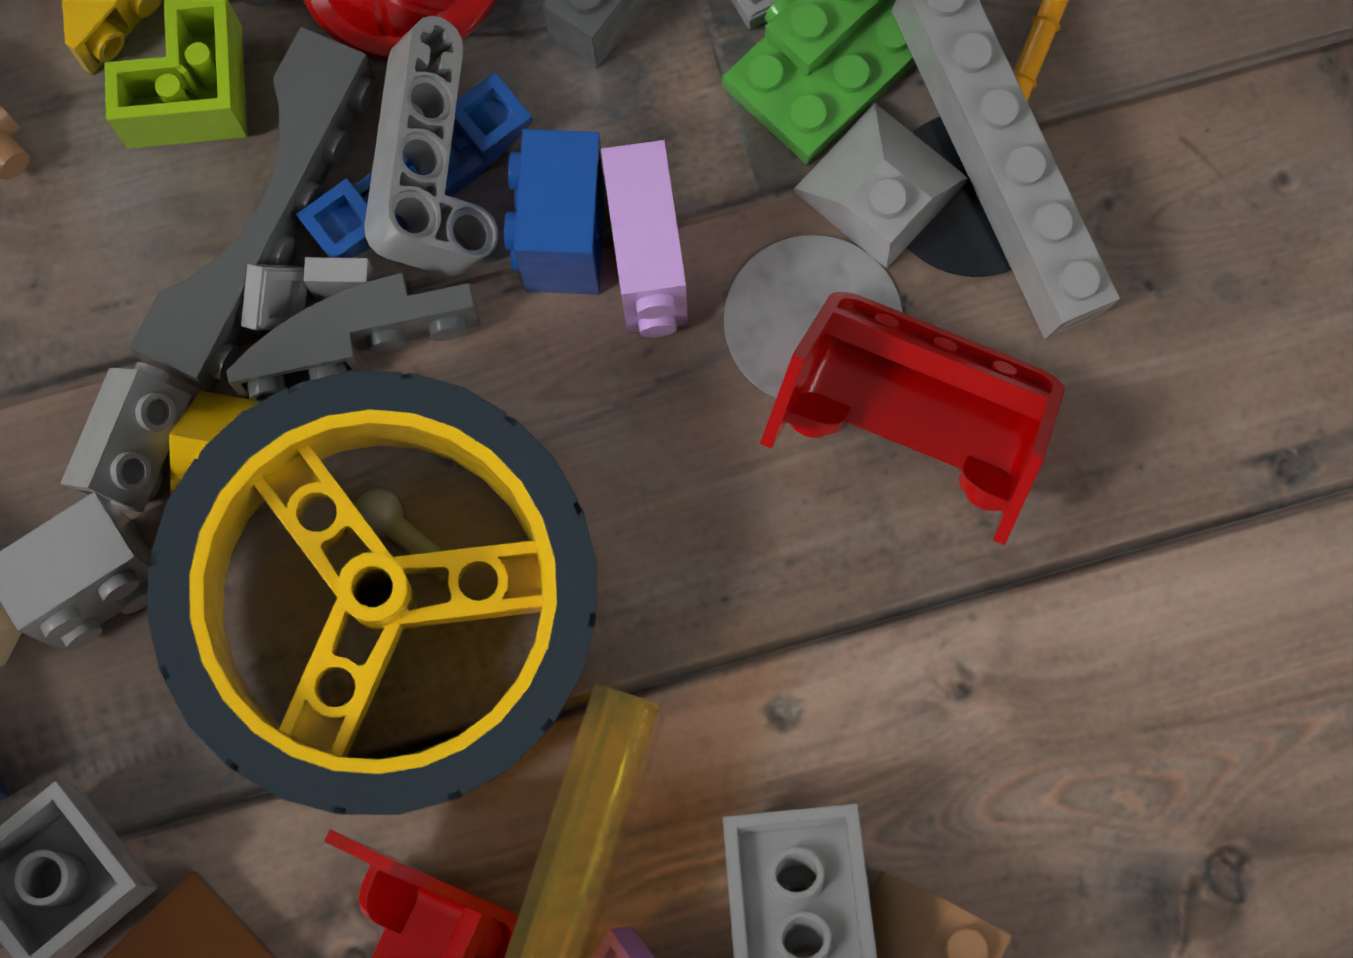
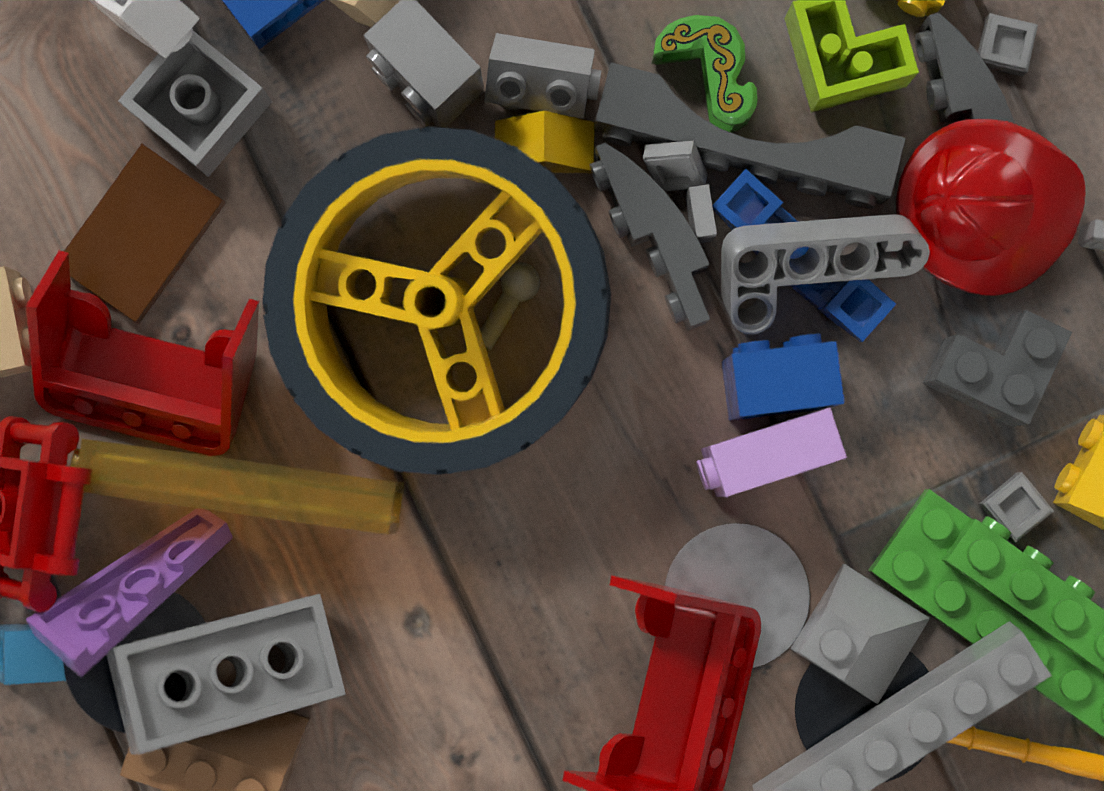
camera: 75 degrees right, 10 degrees up
(159, 224) = (721, 61): none -> bright green animal

